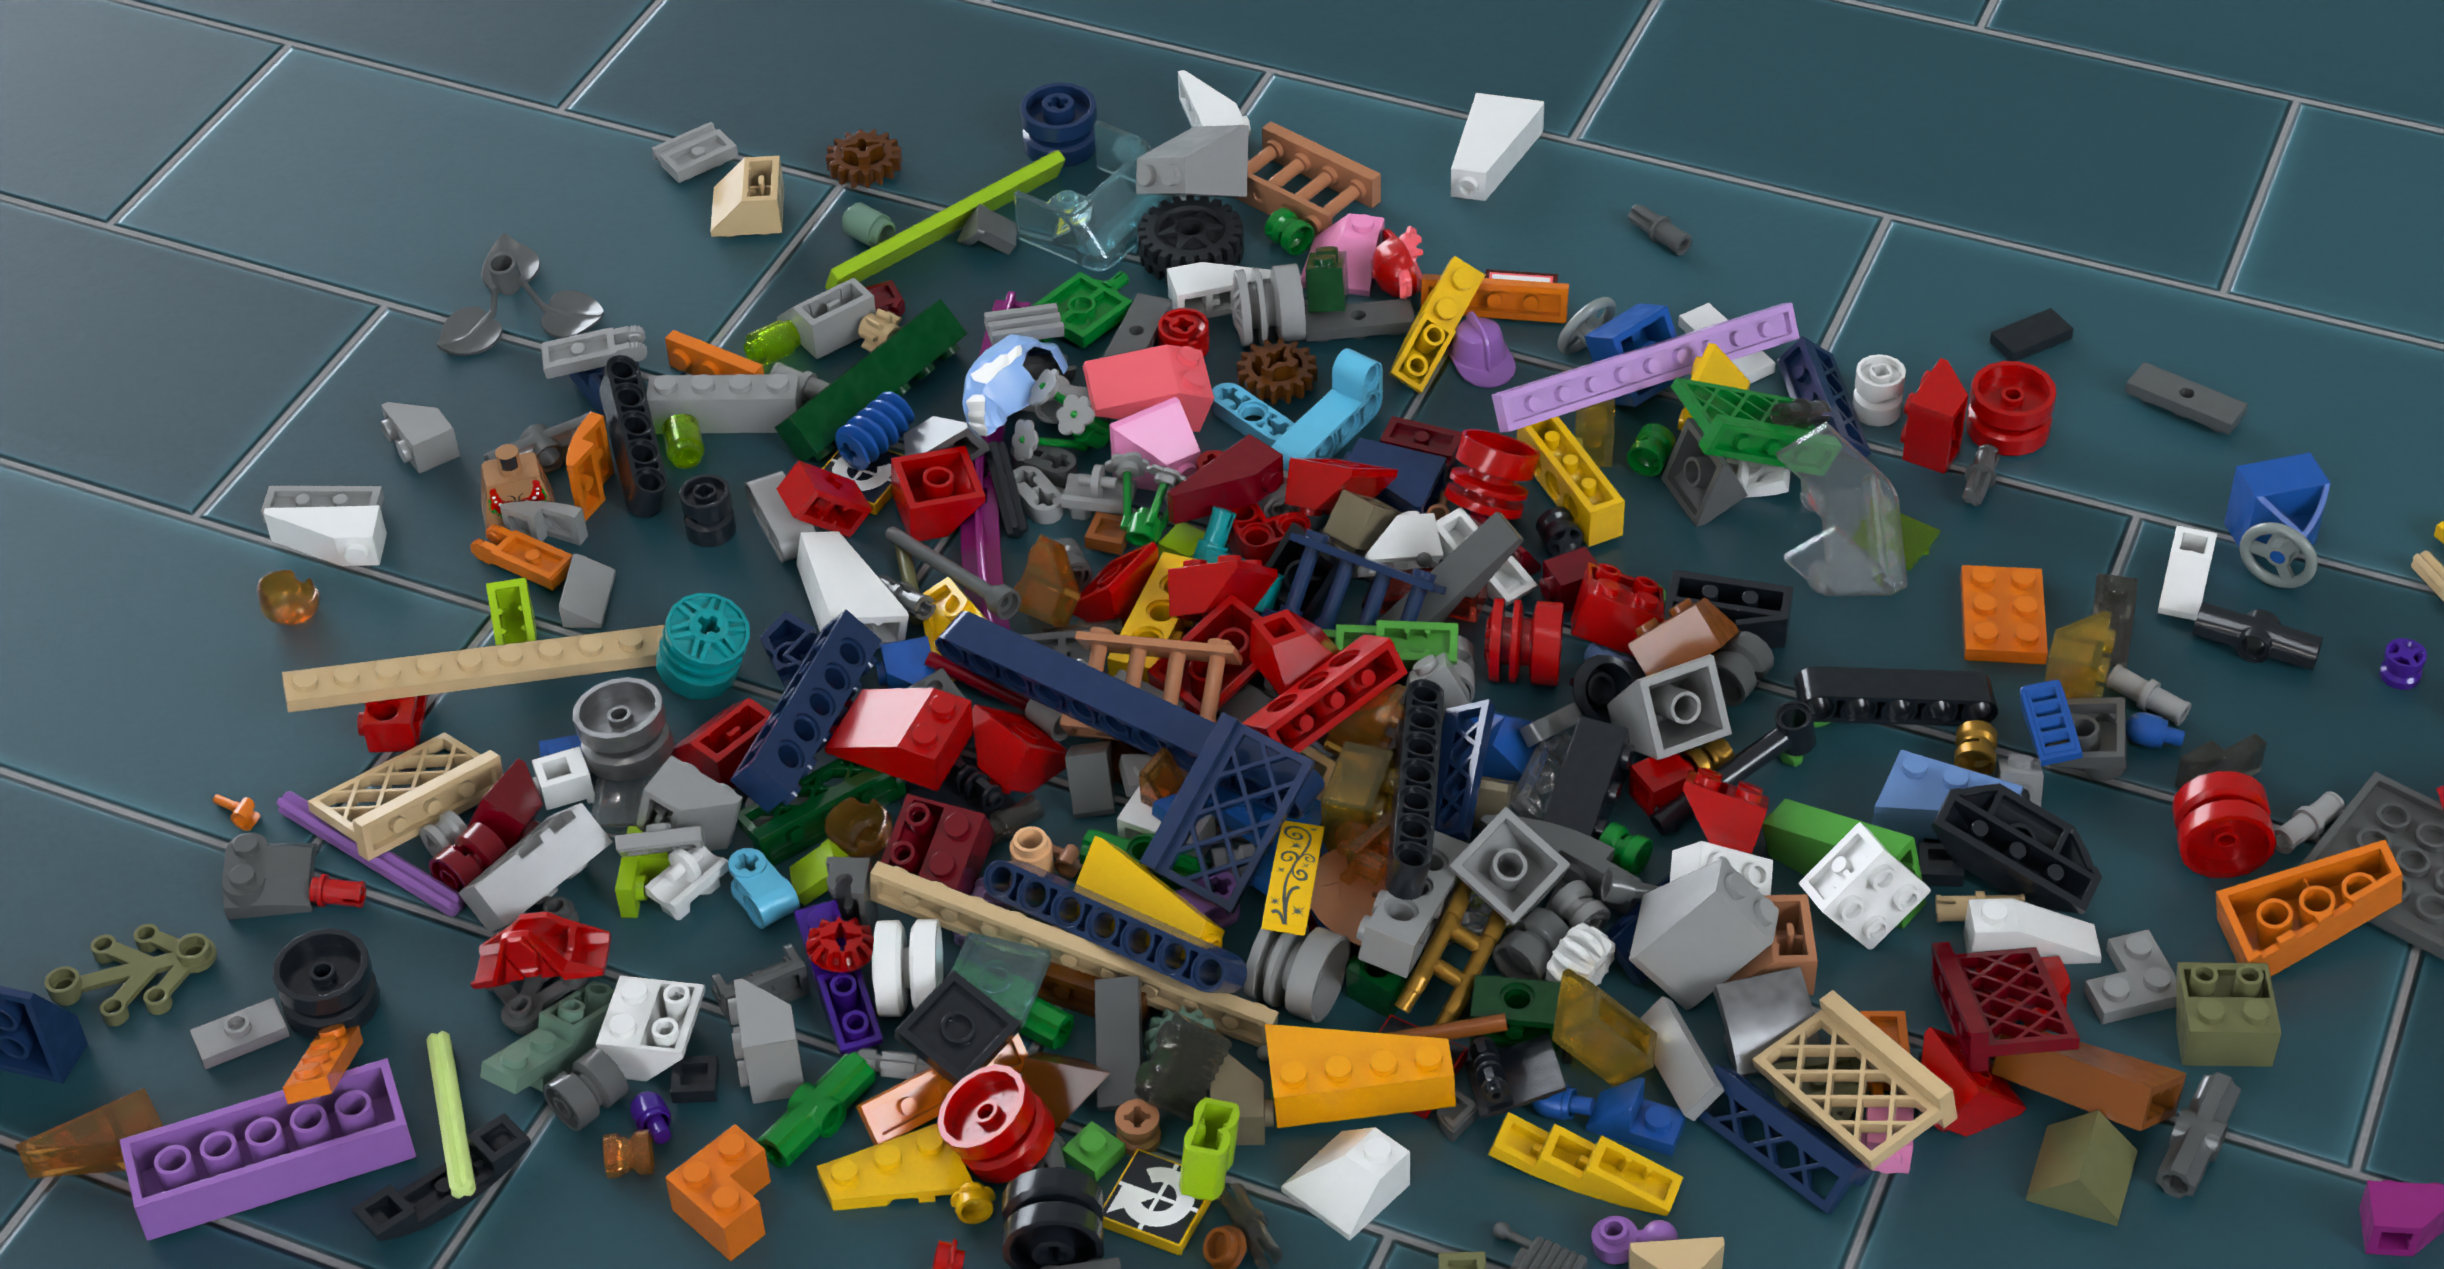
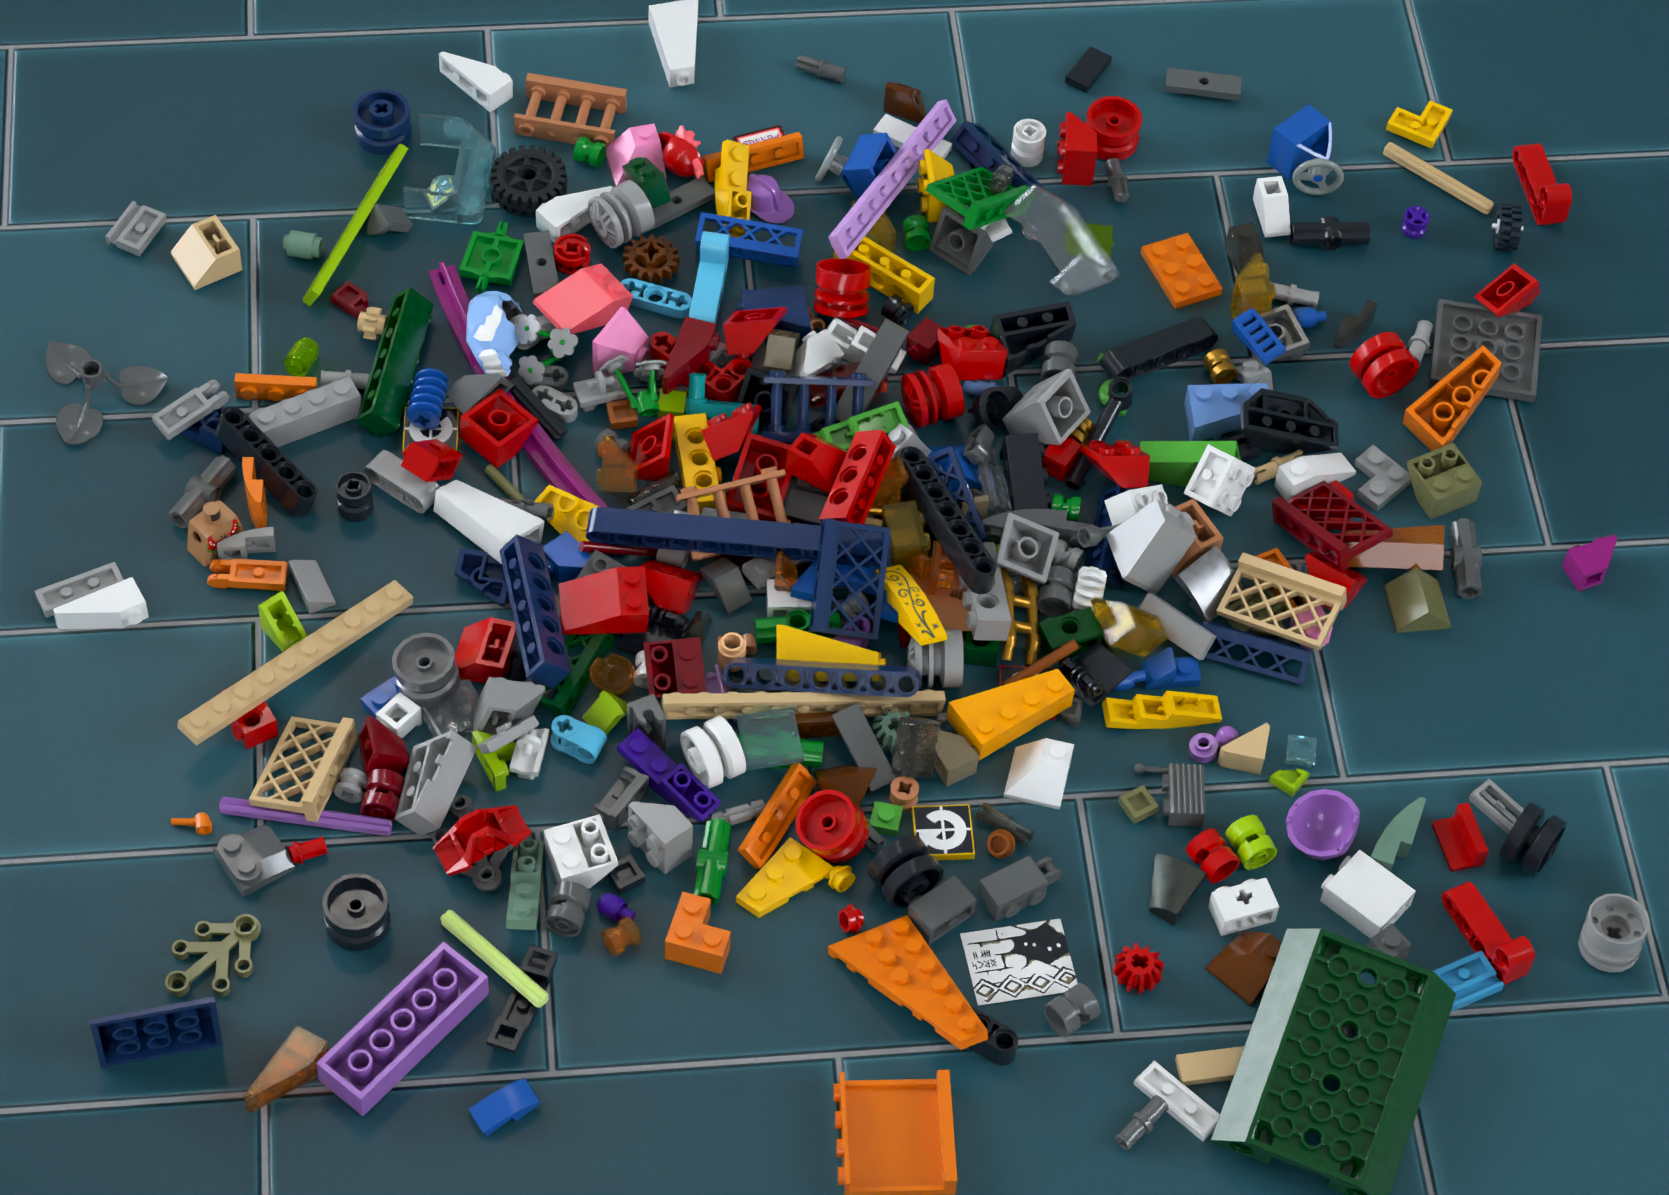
camera: 35 degrees left, 10 degrees up
(239, 1033) = (315, 965): light grey plate -> none
(287, 599) = (115, 667): clear orange hair -> none
(323, 1063) = (406, 962): orange plate -> none
(419, 434) = (109, 512): light grey slope -> none
(683, 440) = (297, 450): clear neon green brick -> none
(702, 646) = (430, 593): teal wheel -> none
(826, 953) = (663, 763): red gear -> none
(831, 317) = (330, 322): light grey slope -> none
(863, 158) = (262, 193): reddish brown gear -> none
(957, 1029) = (775, 779): black plate -> none
(1000, 599) = (595, 488): dark grey piece -> none
(1030, 321) = (467, 283): light grey tile -> none
(1197, 164) = (510, 124): light grey slope -> none
(1209, 1149) = (964, 790): lime brick -> none
(1418, 402) = (754, 249): none -> blue fence
(1423, 438) = (773, 276): dark red plate -> none
(1687, 635) = (1029, 362): dark orange slope -> none
(1741, 291) = (904, 101): none -> reddish brown slope

